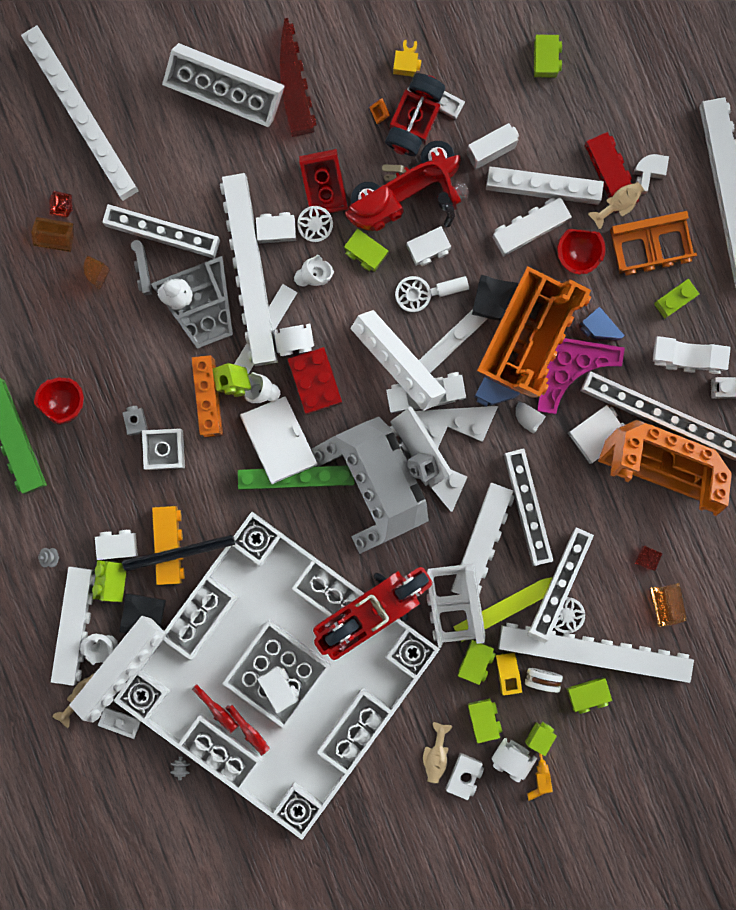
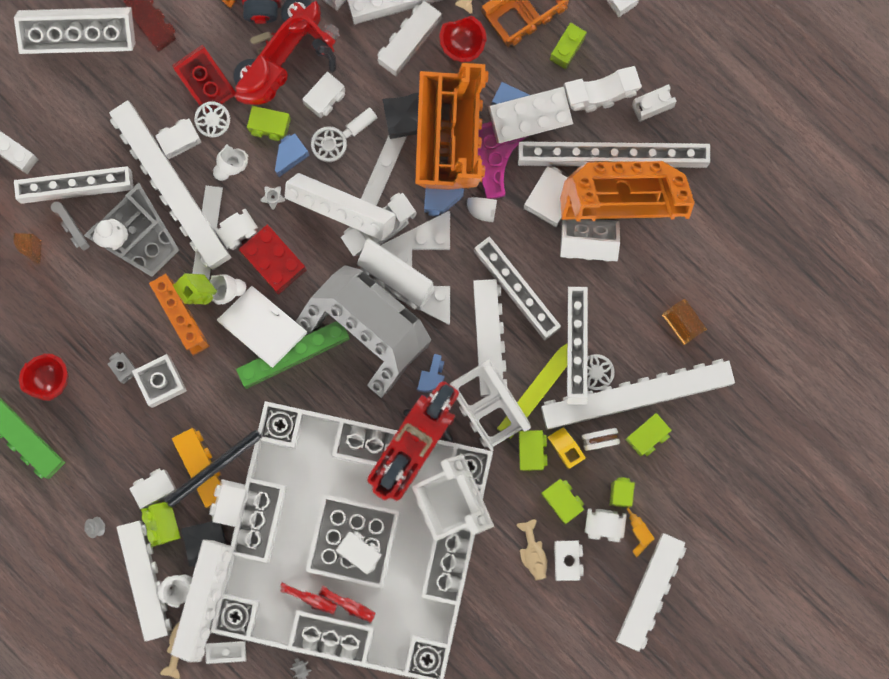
camera: 20 degrees left, 5 degrees down
(178, 590) = (227, 503): none -> white brick
(344, 324) = (272, 191): none -> white plate
(373, 288) = (290, 154): none -> medium blue slope
(383, 680) = (452, 500): none -> white windscreen
(412, 557) = (430, 380): none -> medium blue brick
(417, 467) = (399, 293): light grey brick -> none
(527, 838) = (650, 592): none -> white brick
(612, 351) = (530, 115): none -> white brick
(616, 493) = (590, 239): none -> white slope
(648, 558) = (647, 288): clear red slope -> none

